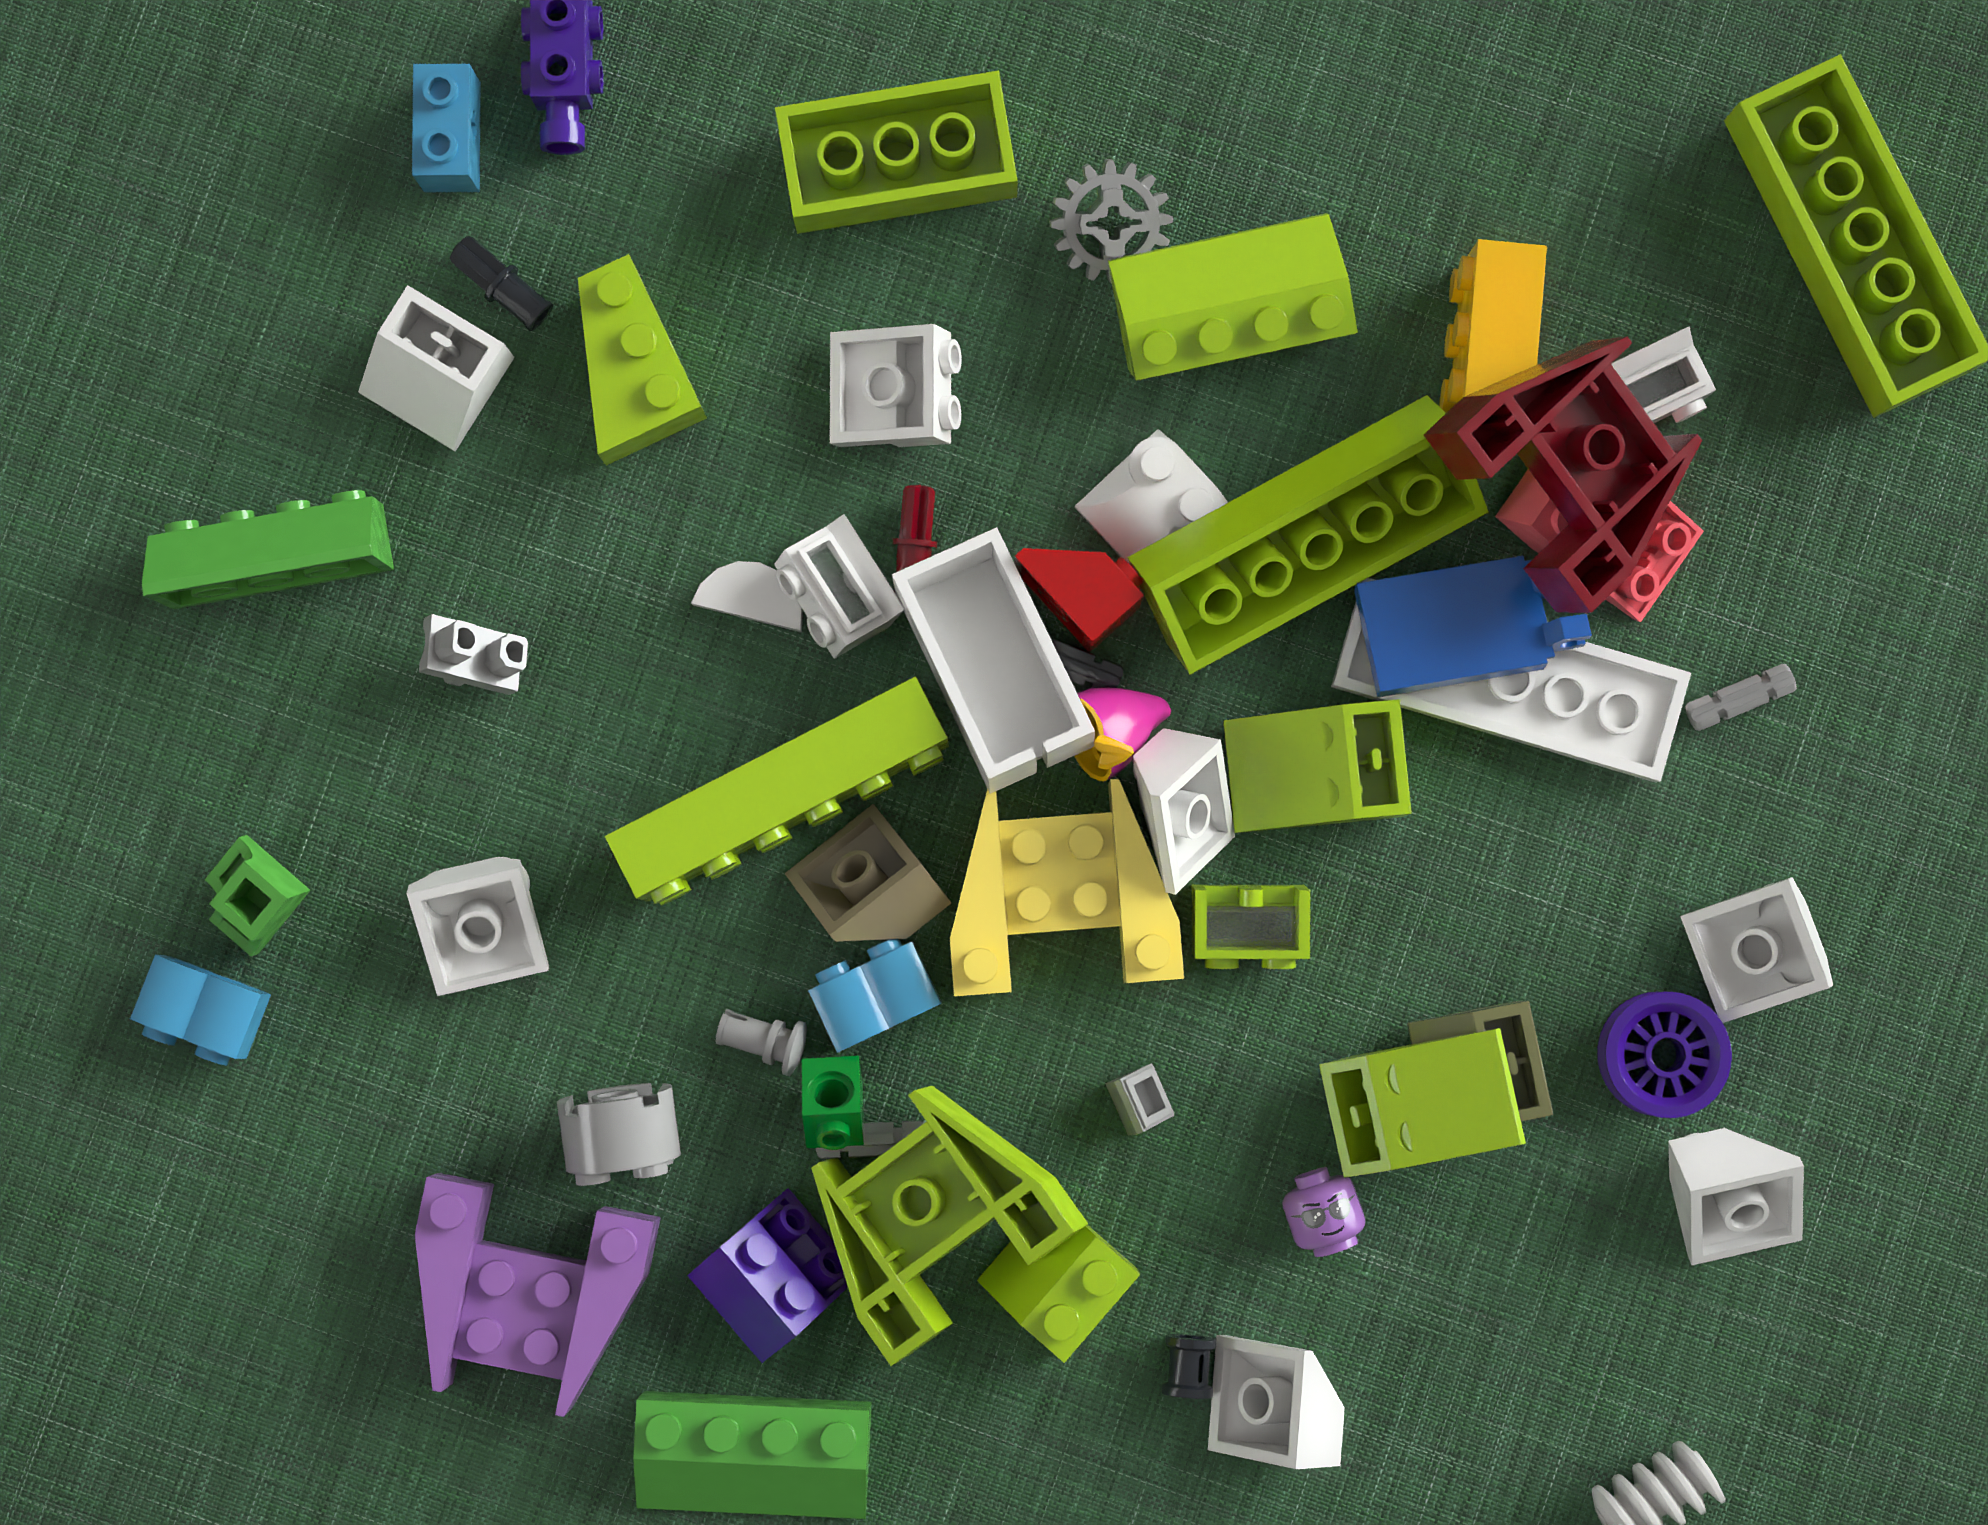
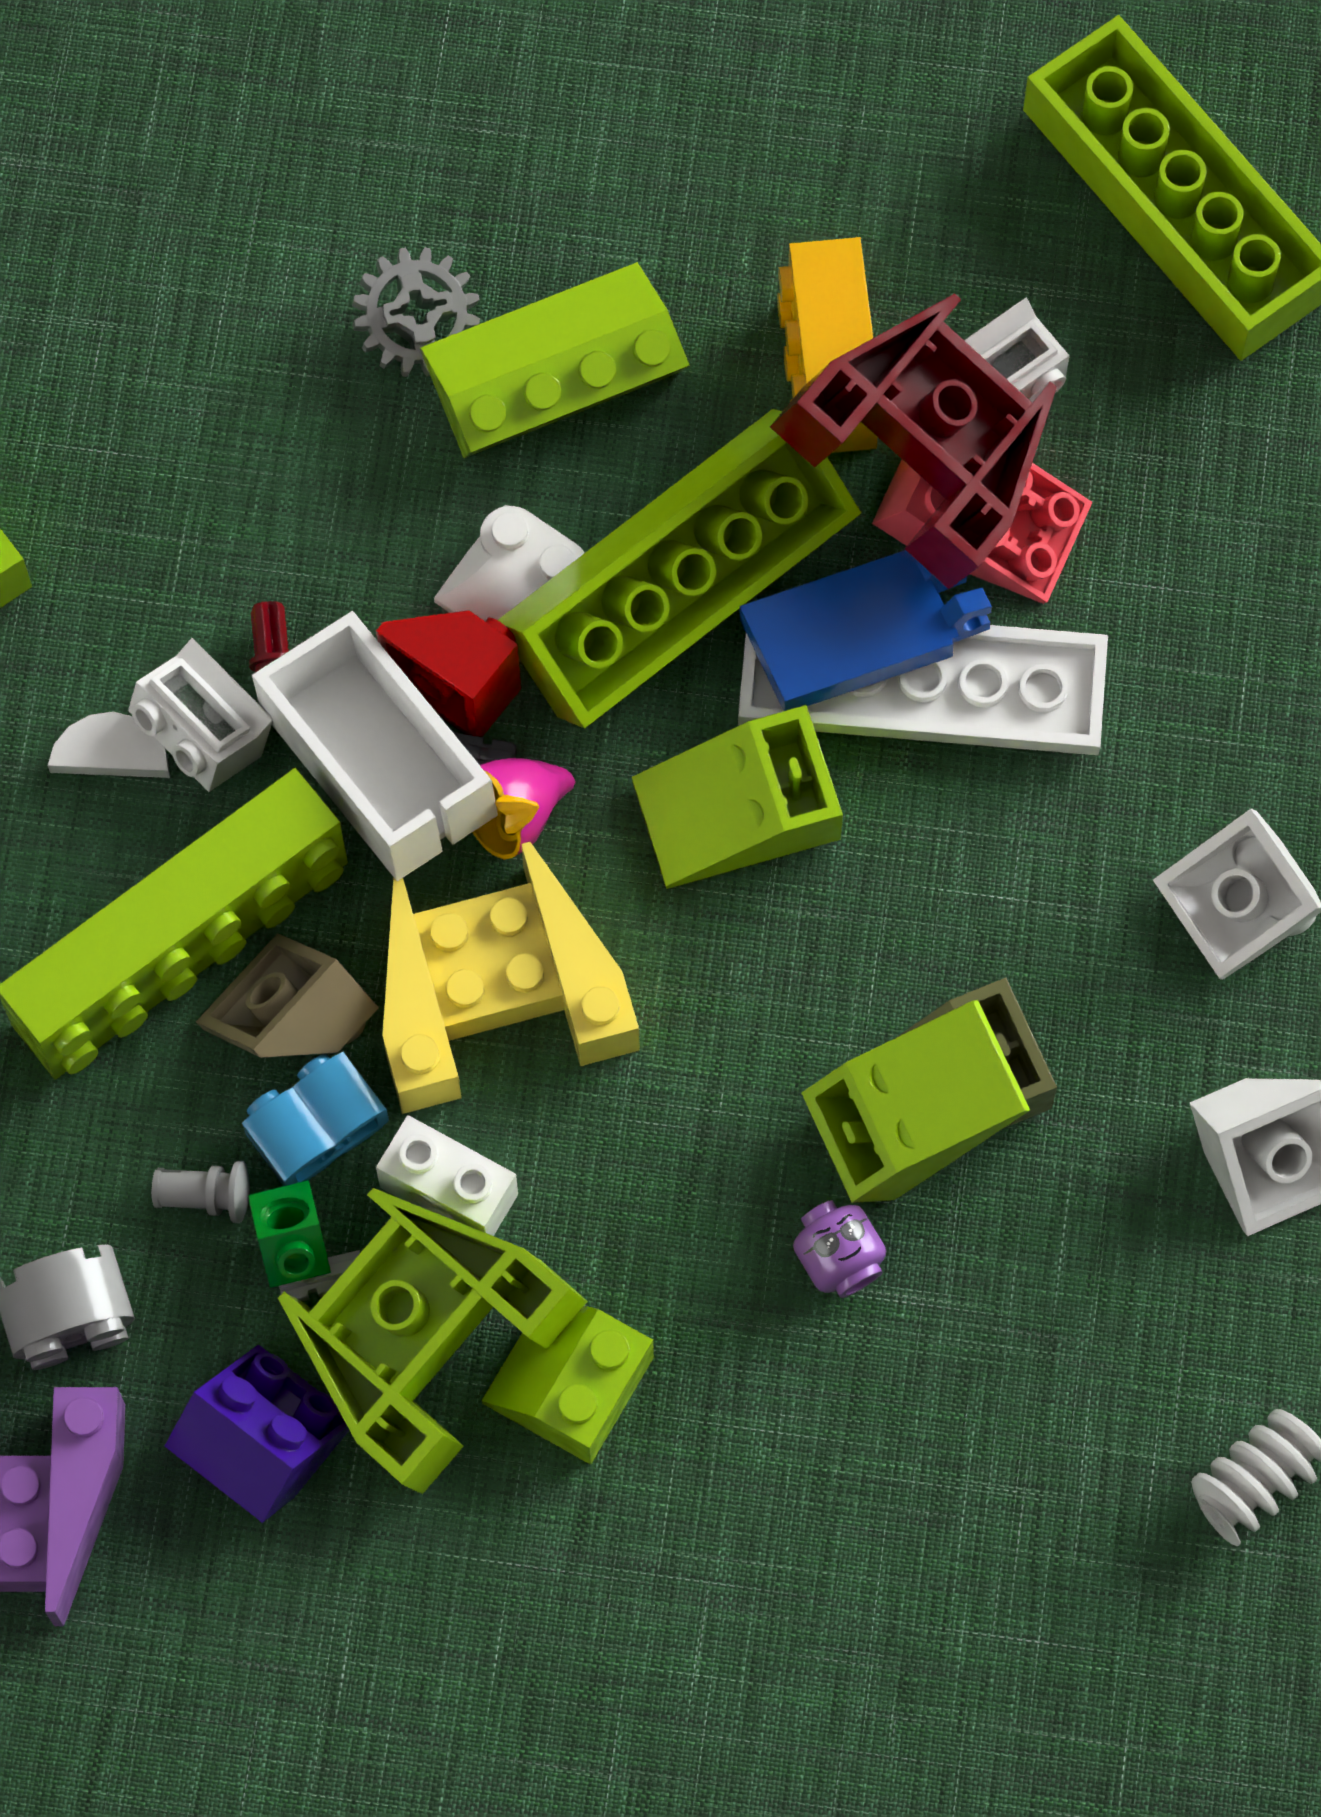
camera: 10 degrees left, 15 degrees down
(752, 1454) = (270, 1629): bright green slope -> none
(893, 386) = (221, 512): white plate -> none
(897, 152) = (183, 285): lime brick -> none
(984, 1078) = (446, 1177): none -> white brick
(1140, 1100) = (619, 1178): light grey slope -> none
(1183, 802) = (605, 857): white slope -> none
(1189, 1366) = (728, 1440): black bush -> none
(1250, 924) = (701, 974): lime window -> none
(1273, 1405) = (829, 1459): white slope -> none
(1702, 1088) = (1193, 975): dark purple wheel -> none
(1740, 697) = (1166, 654): light grey axle -> none

